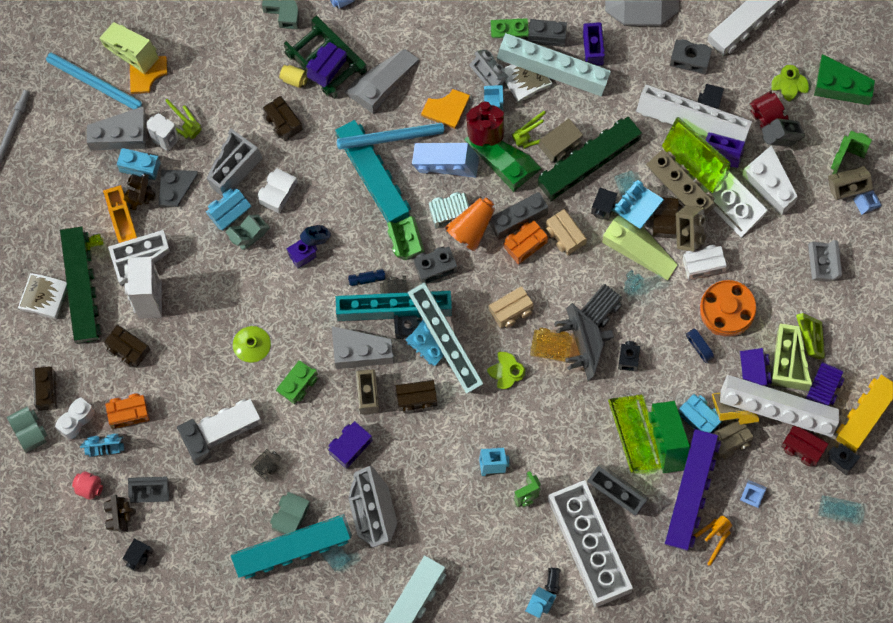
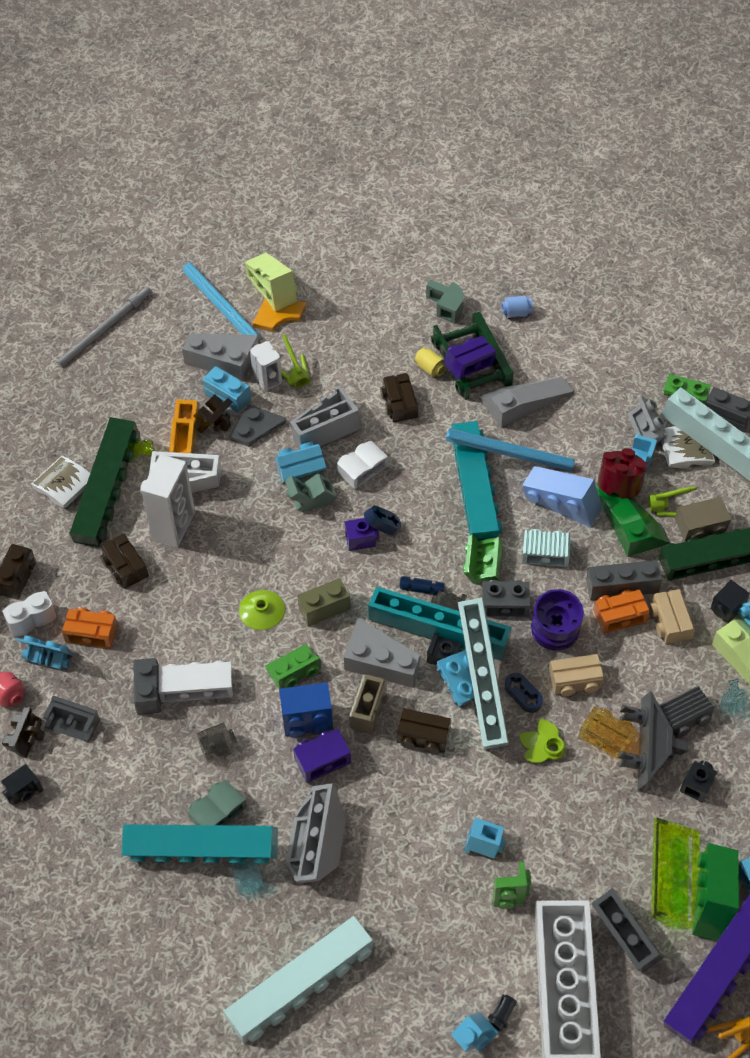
camera: 20 degrees right, 15 degrees down
(298, 321) = (324, 602): none -> olive brick
(324, 415) = (306, 709): none -> blue brick
(446, 109) = (584, 449): light orange tile -> none
(472, 223) = (567, 564): orange cone -> none
(475, 261) = (557, 608): none -> dark purple wheel
(475, 340) = (520, 696): none -> dark blue beam

